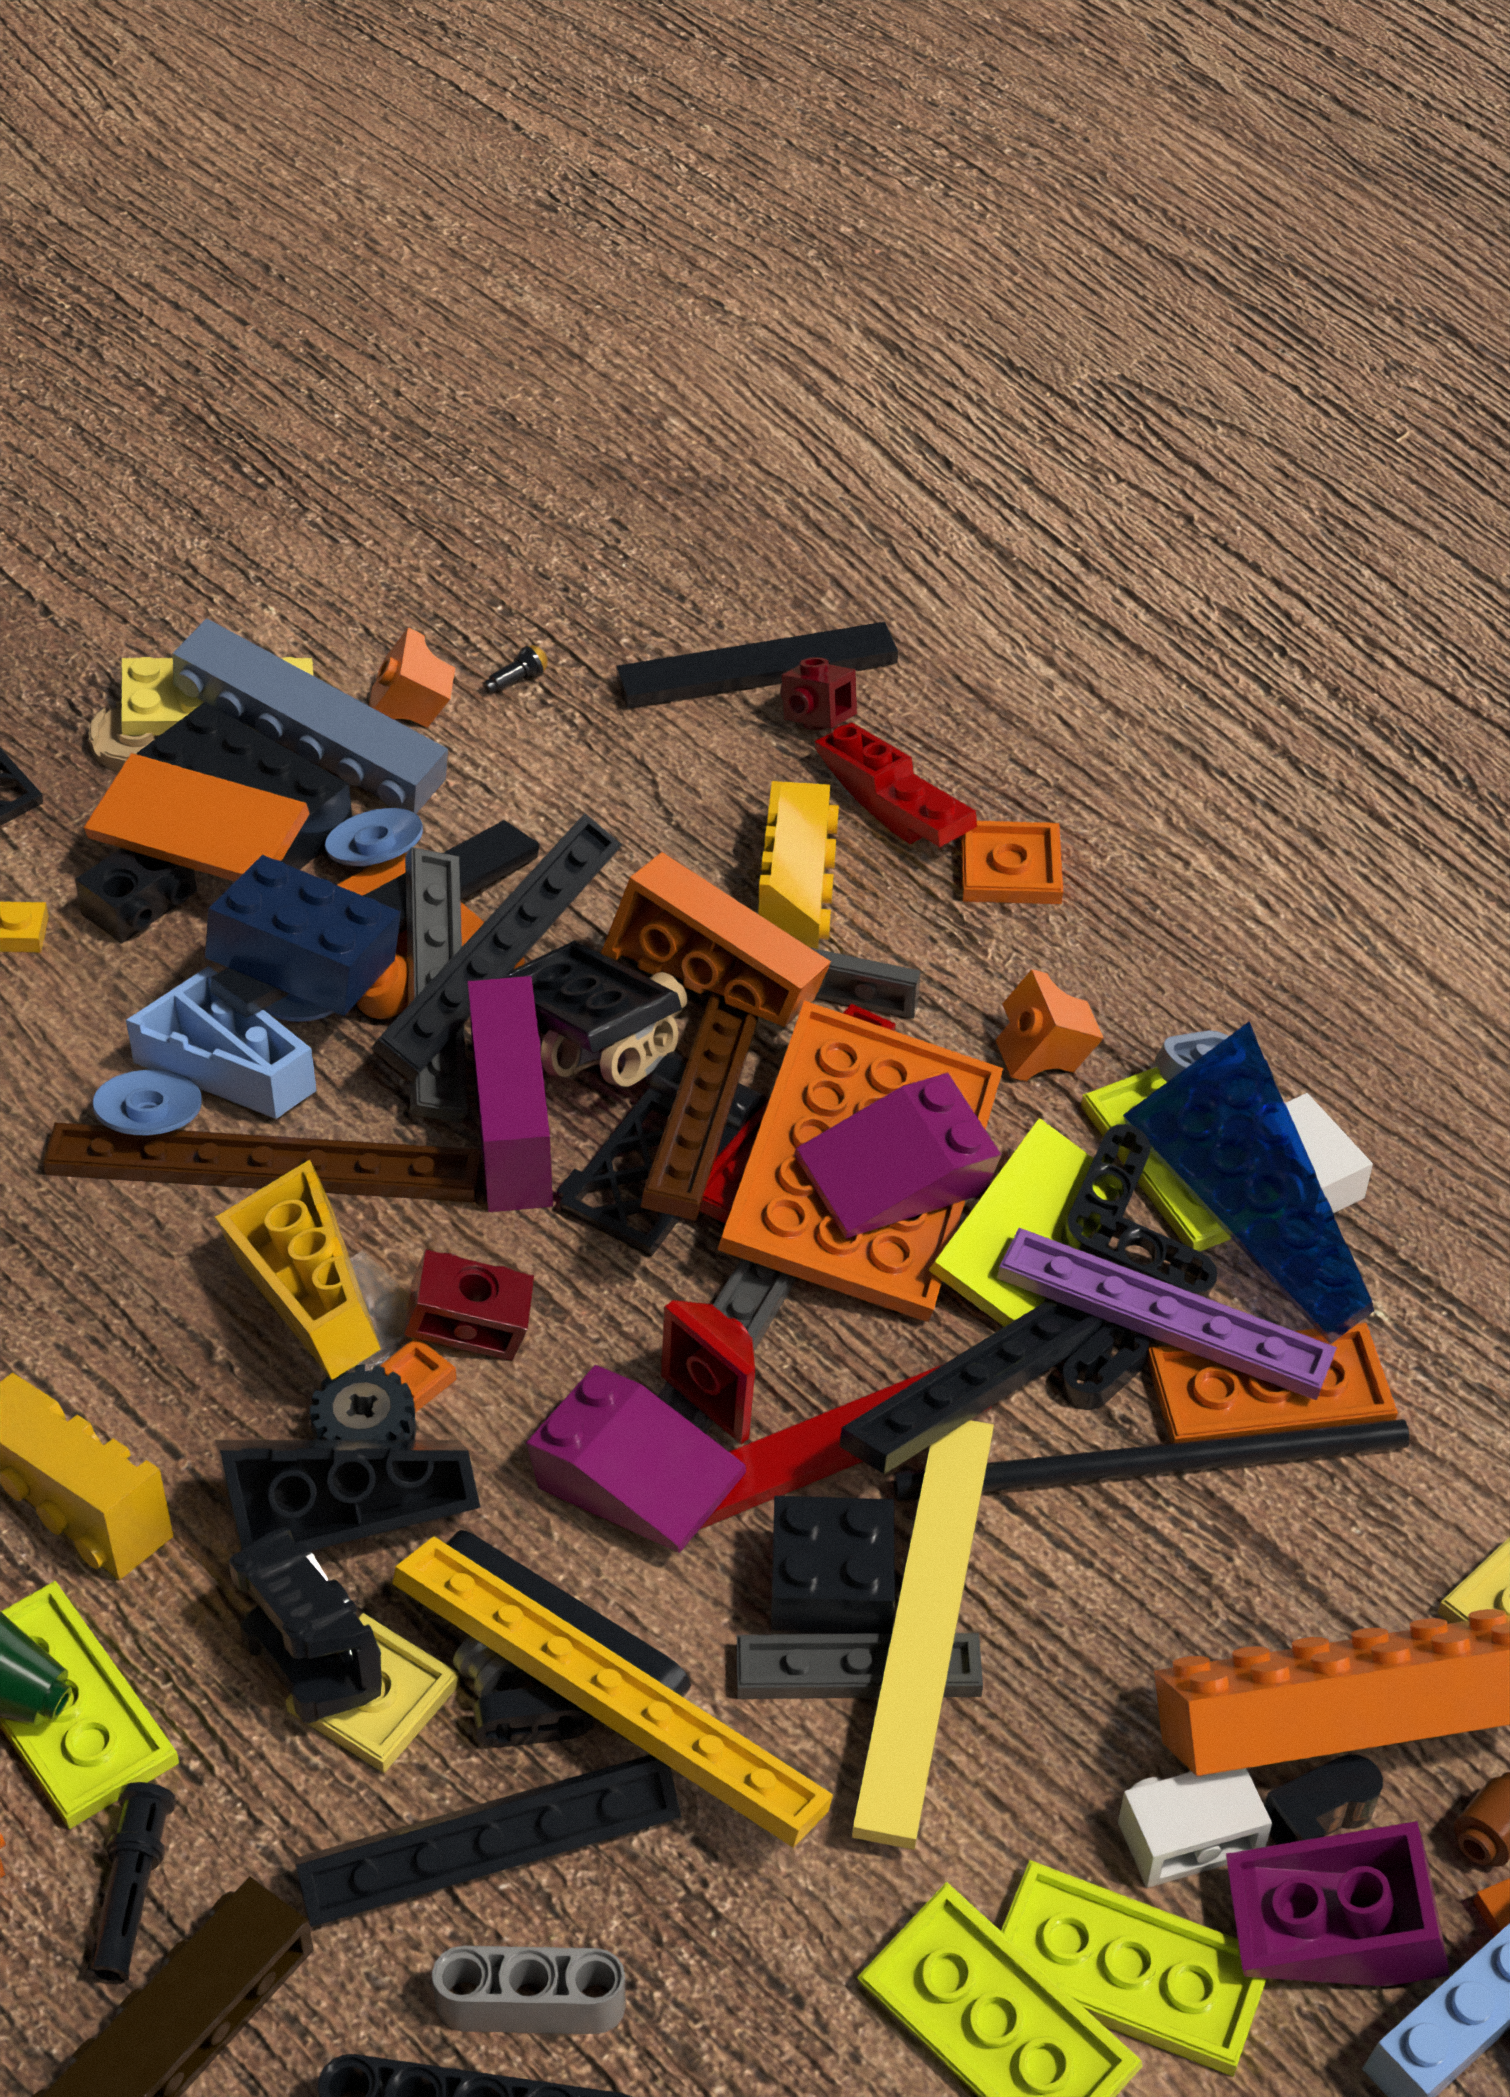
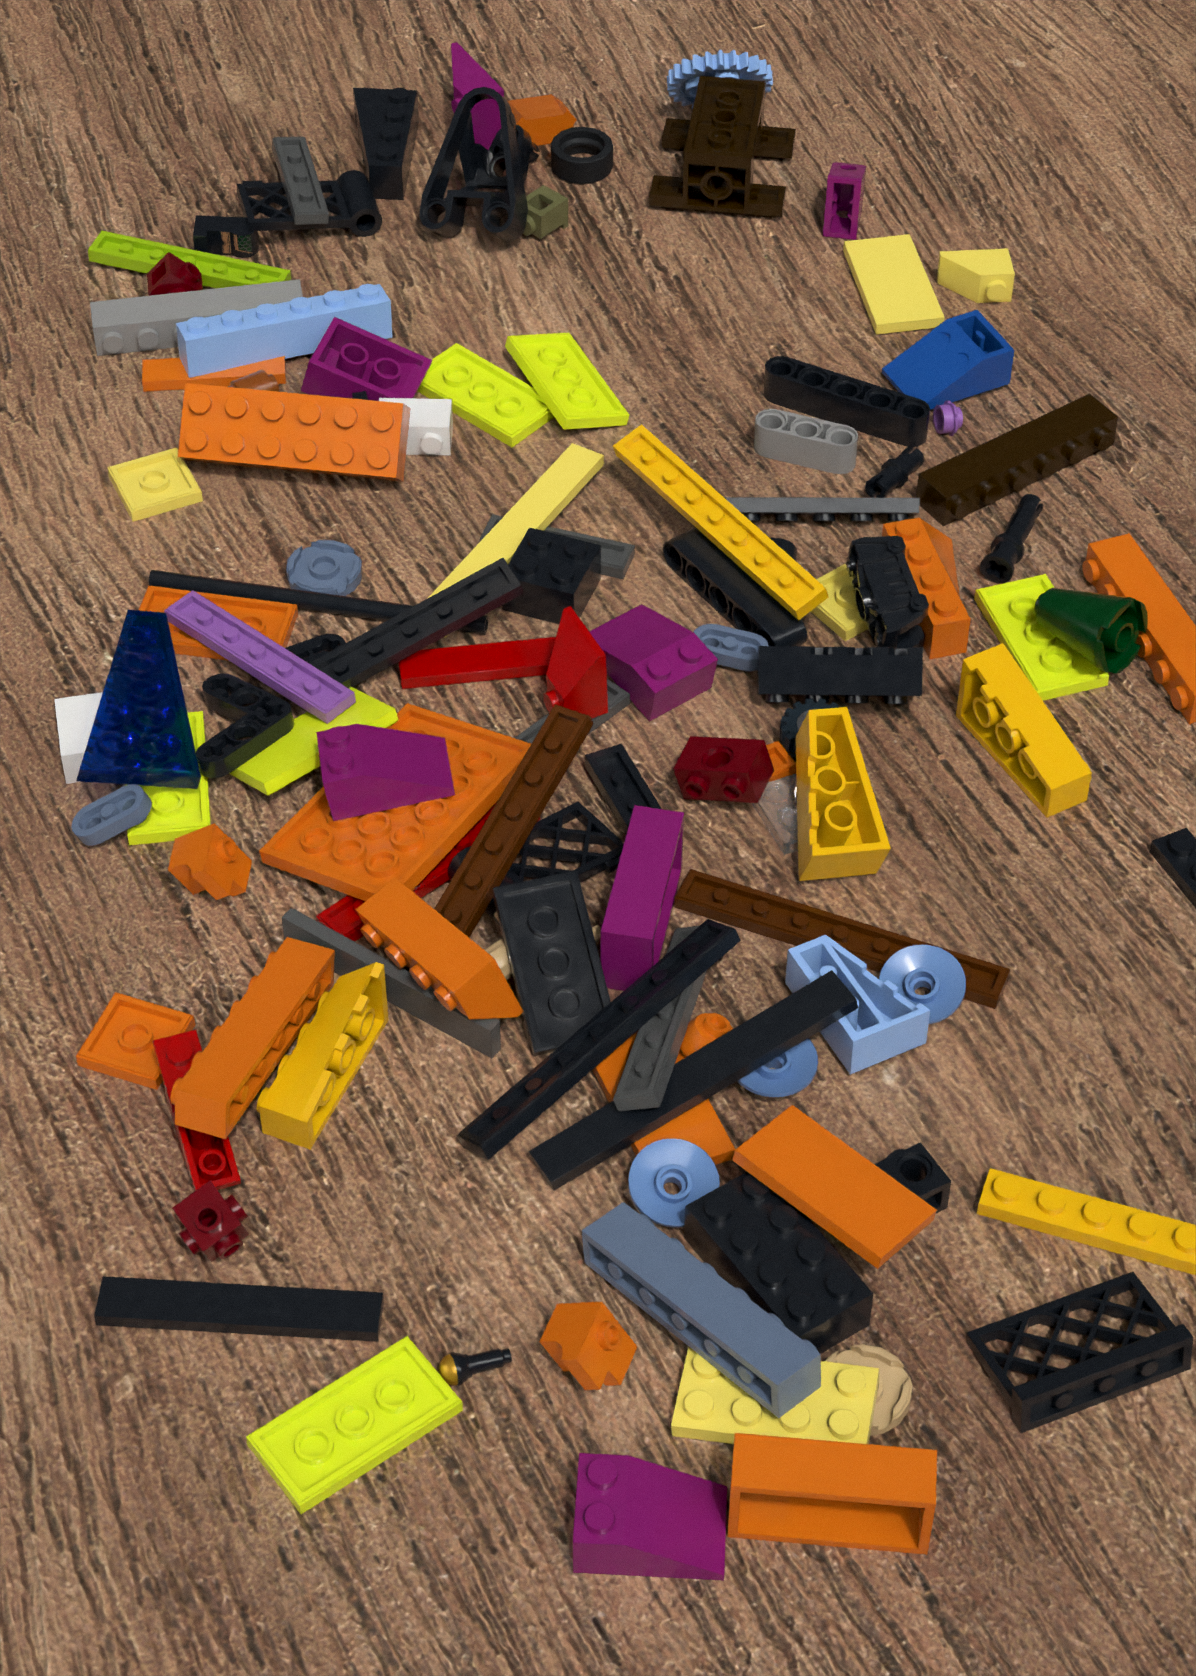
camera: 160 degrees left, 0 degrees up
(135, 605) = (832, 1493): none -> orange piece
(256, 1739) = (935, 575): none -> orange wedge
(302, 934) = (774, 1002): dark blue brick -> none
(313, 587) = (647, 1520): none -> magenta slope
(357, 1971) = (894, 473): none -> black pin
(529, 1529) = (731, 646): none -> sand blue plate
(588, 1265) = (619, 782): none -> black plate
(605, 611) = (354, 1424): none -> neon yellow tile
(870, 831) = (253, 1038): none -> orange brick
(1176, 1522) = (325, 568): none -> sand blue tile

